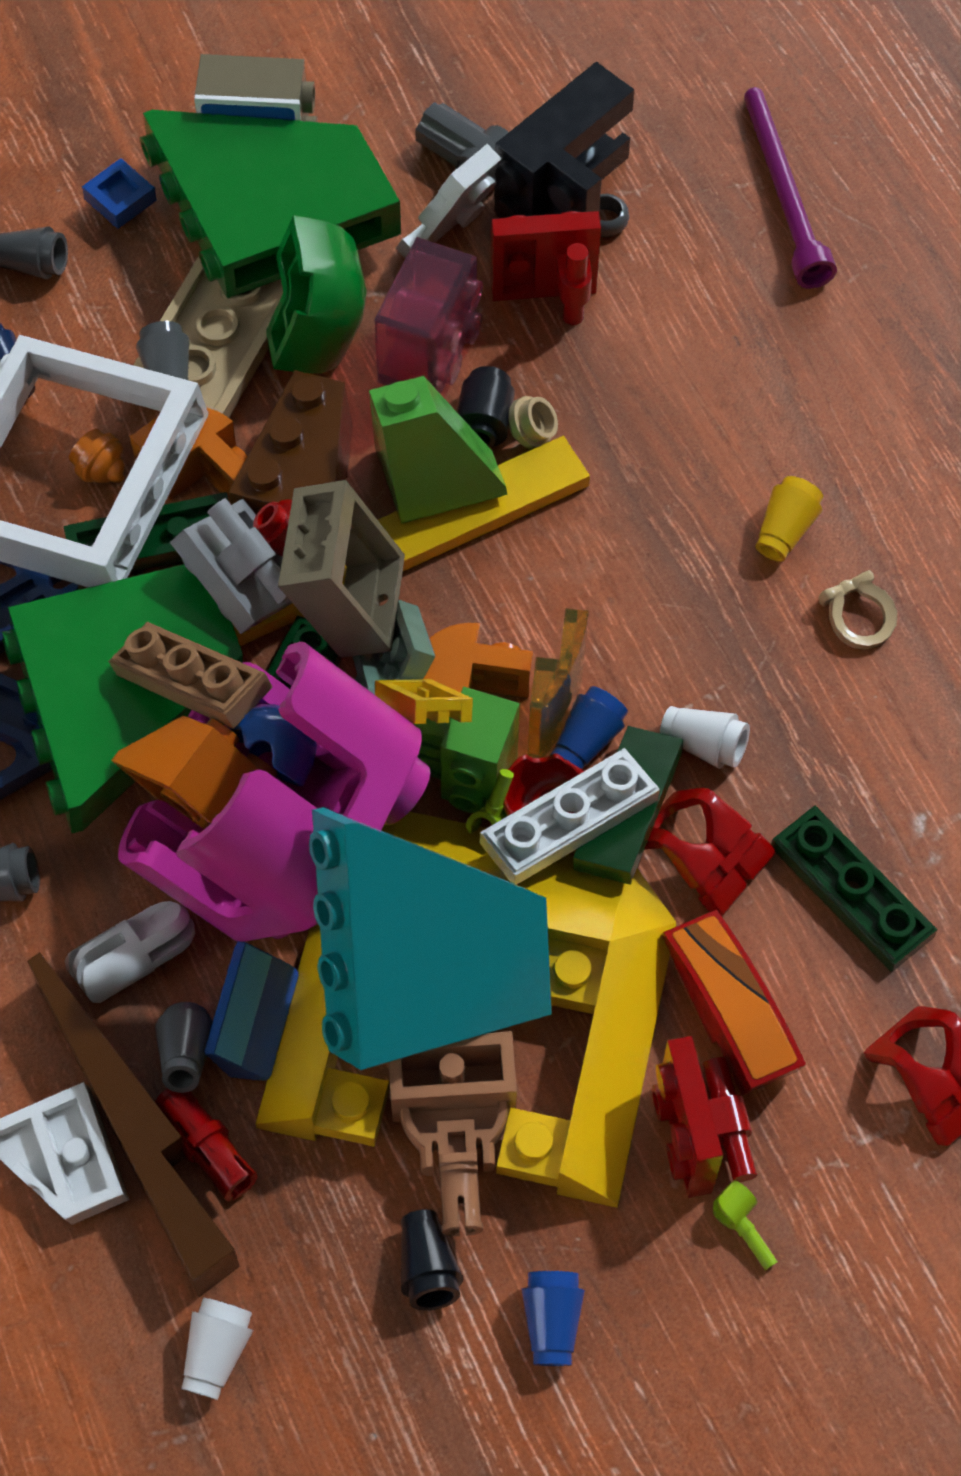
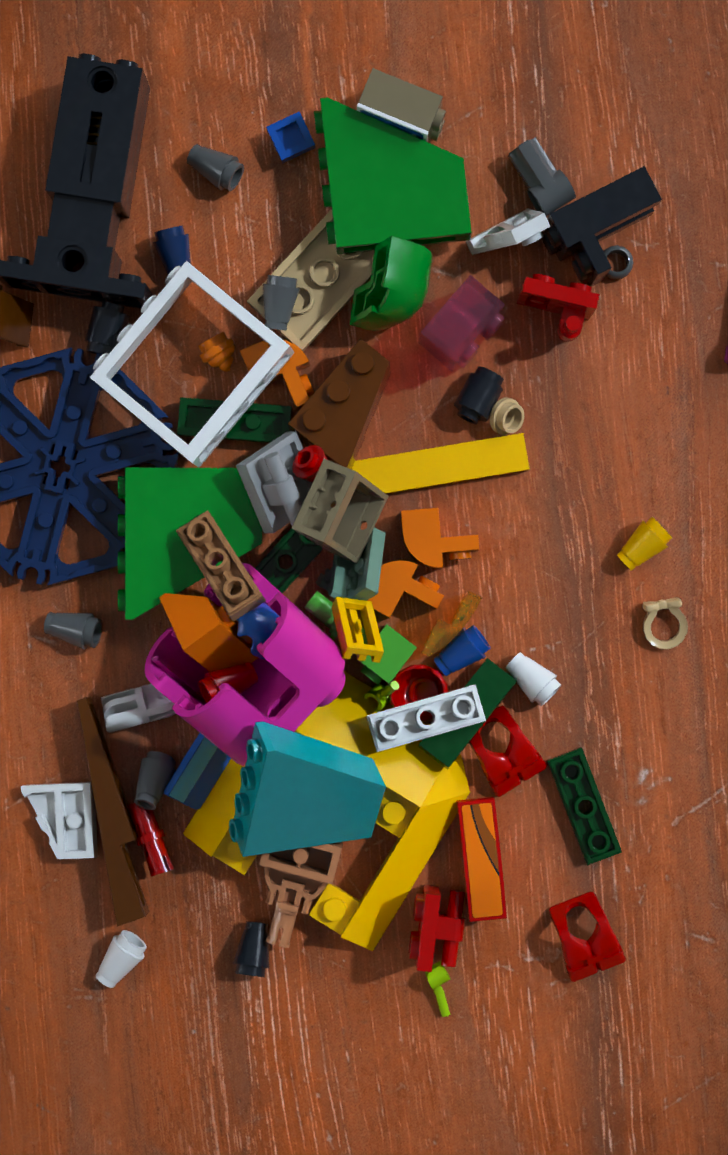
camera: 20 degrees right, 25 degrees up
(429, 452) = (429, 434): bright green slope -> none
(471, 592) = (424, 540): none -> orange brick
(552, 1315) = (312, 1004): blue cone -> none

